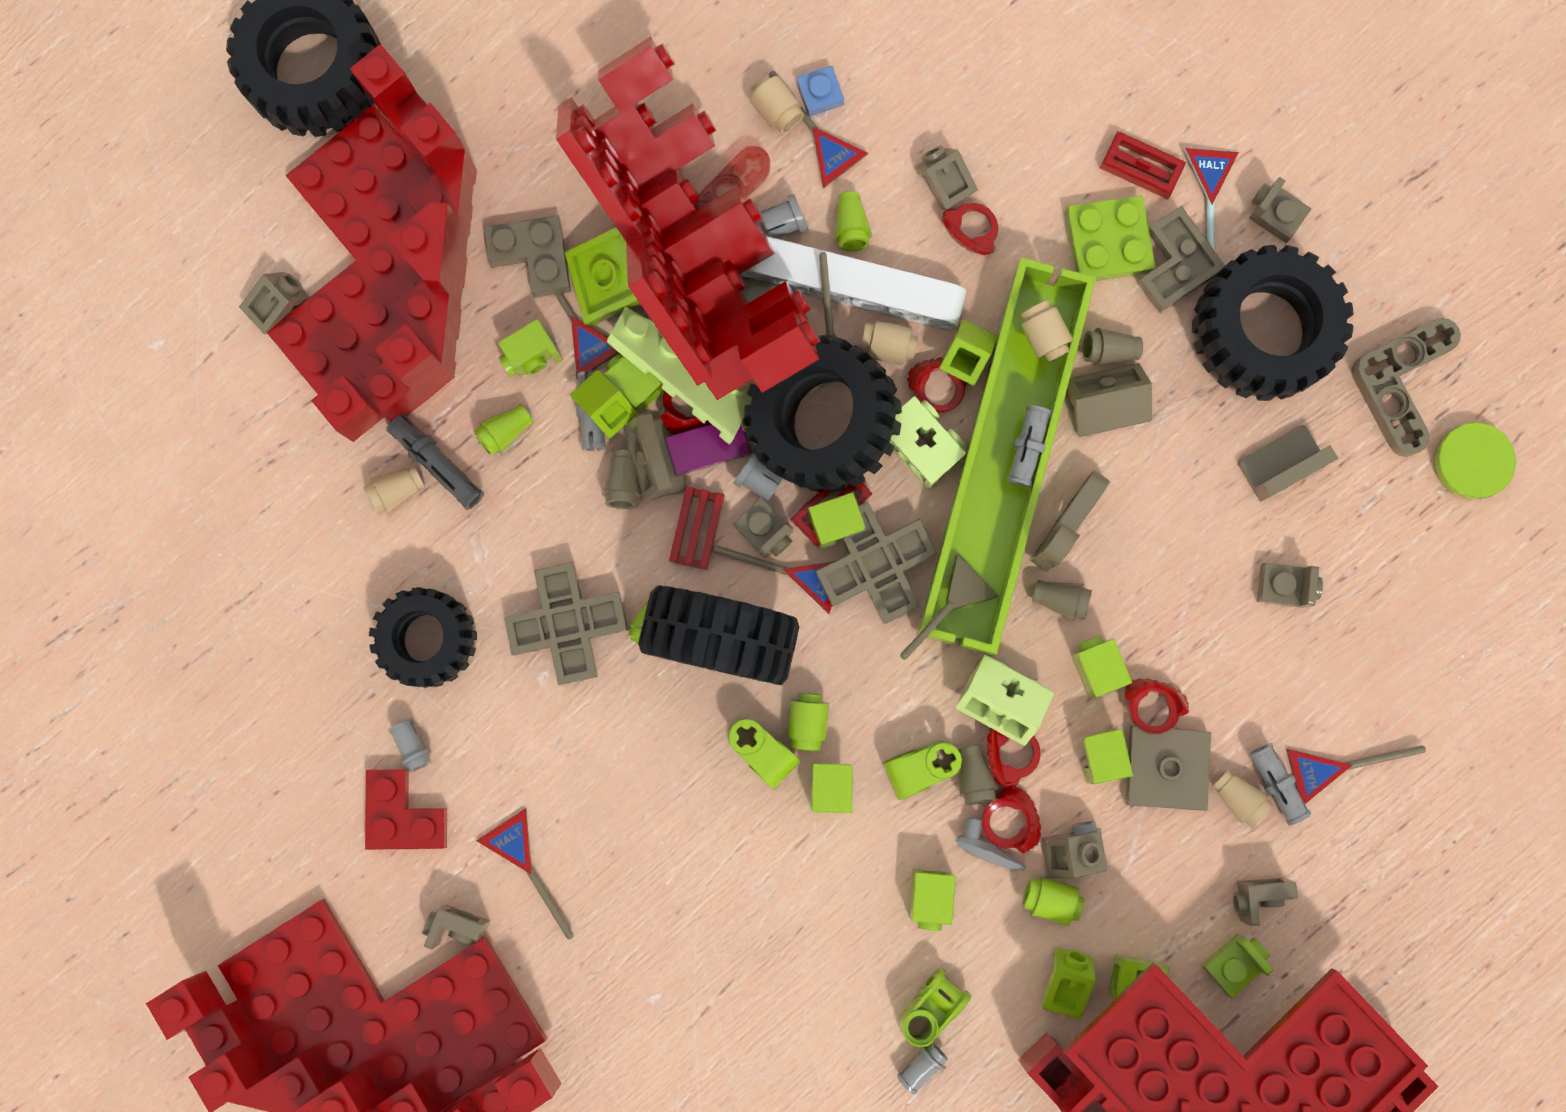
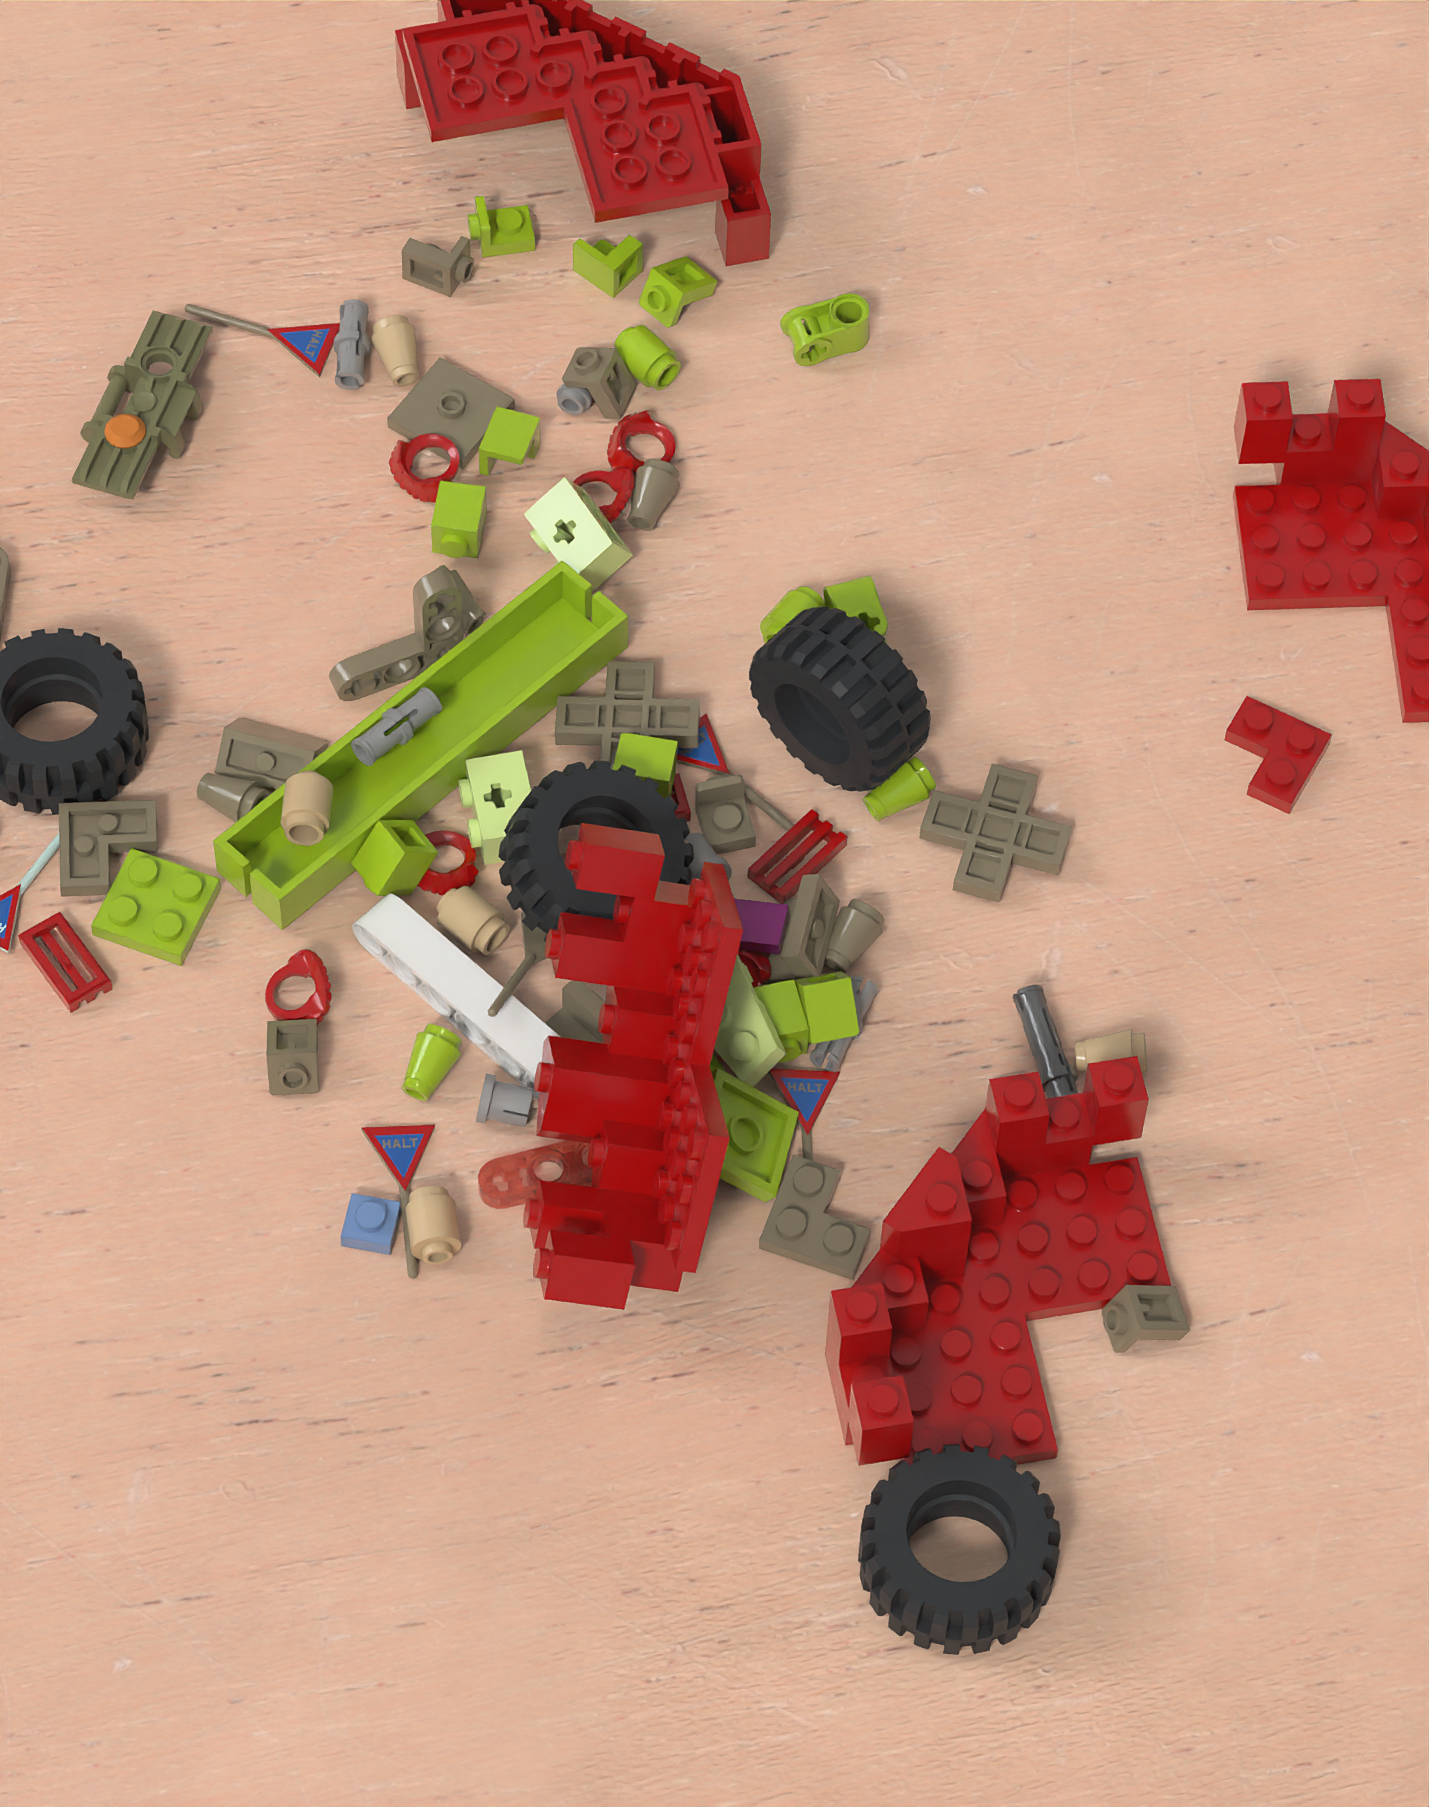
camera: 155 degrees left, 25 degrees down
(391, 631) = (1163, 853): black tyre -> none
(410, 746) = (1231, 812): light grey pin -> none
(461, 926) = (1268, 624): dark tan bracket -> none
(502, 429) = (954, 1052): lime cone -> none
(512, 843) = (1171, 673): piece -> none
(527, 350) = (878, 1113): lime brick -> none
(832, 788) = (810, 546): lime panel -> none
(915, 772) = (703, 525): lime piece -> none
(922, 1068) = (873, 290): light grey pin -> none
(932, 899) = (765, 416): lime brick -> none
(964, 590) = (550, 645): dark tan piece -> none
(985, 851) = (692, 439): light grey bar -> none
(1284, 462) = (133, 603): dark tan panel -> none
(1289, 585) = (212, 501): dark tan bracket -> none
(1382, 634) = (125, 444): none -> olive piece

